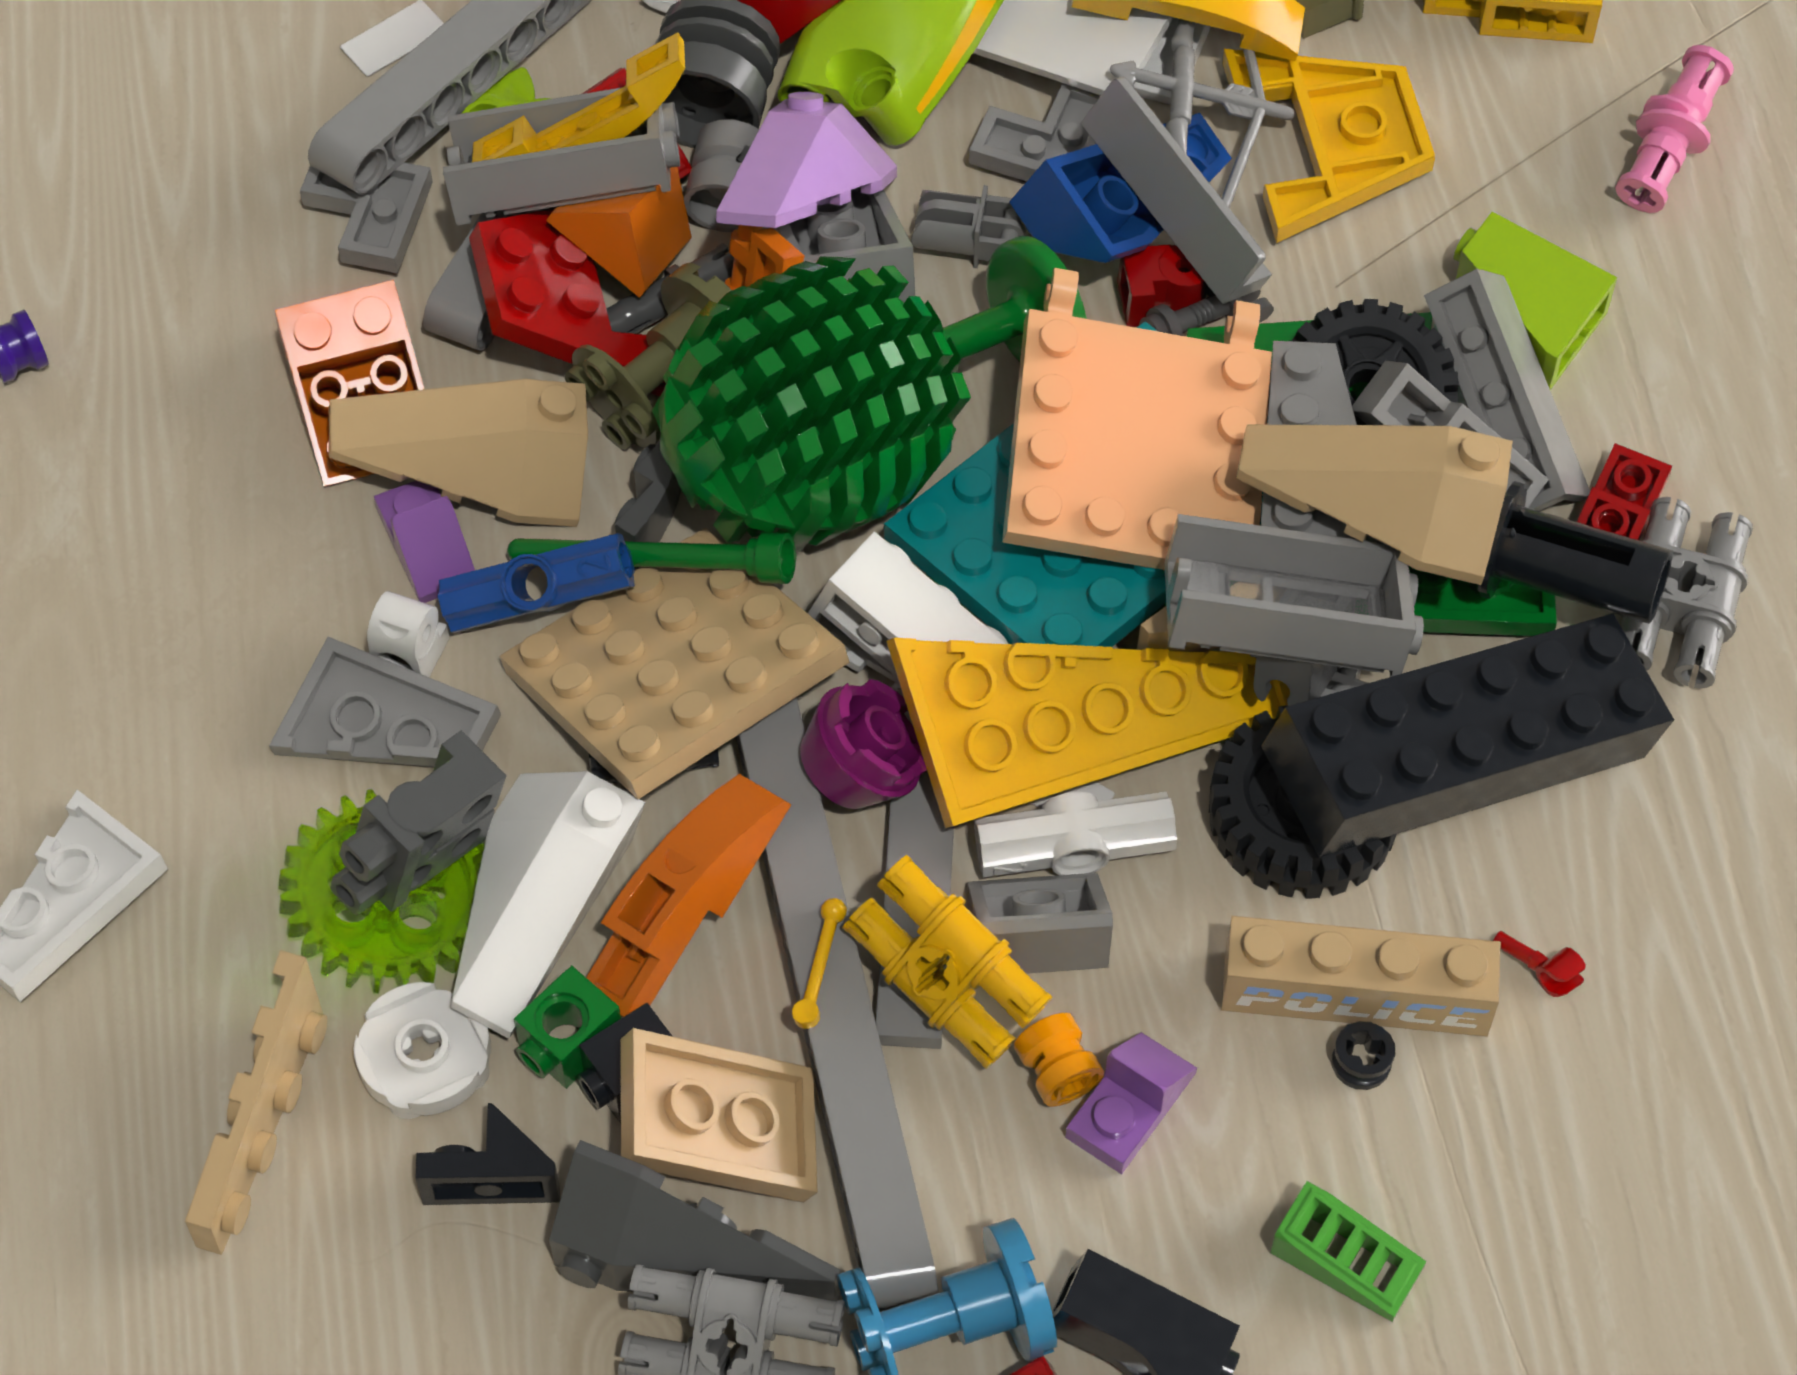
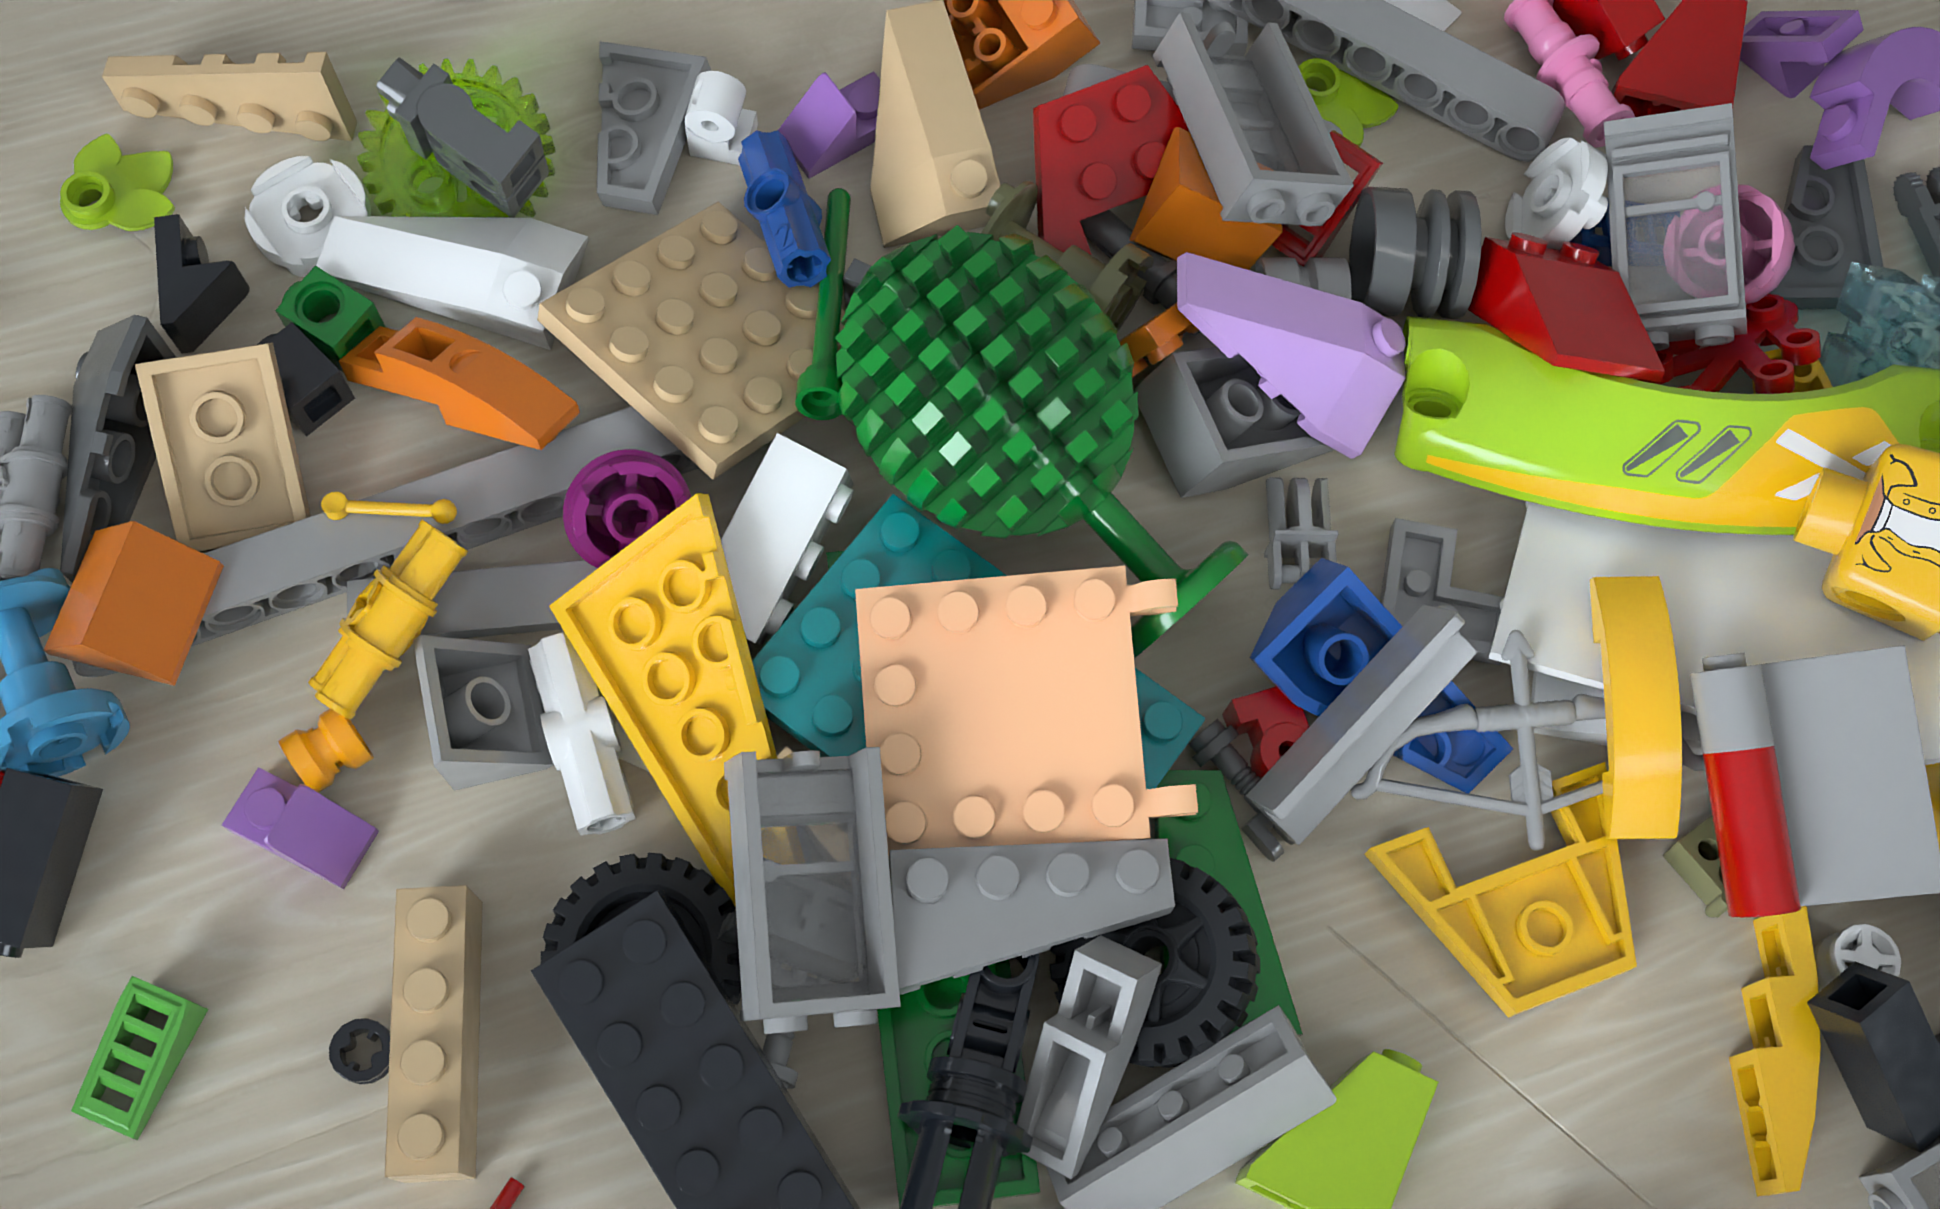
camera: 75 degrees right, 10 degrees up
(333, 1244) = (125, 186): none -> lime plate
(649, 82) = (1275, 133): yellow slope -> none
(885, 1208) = (135, 603): none -> orange slope
(1409, 486) = (956, 979): tan wedge -> none

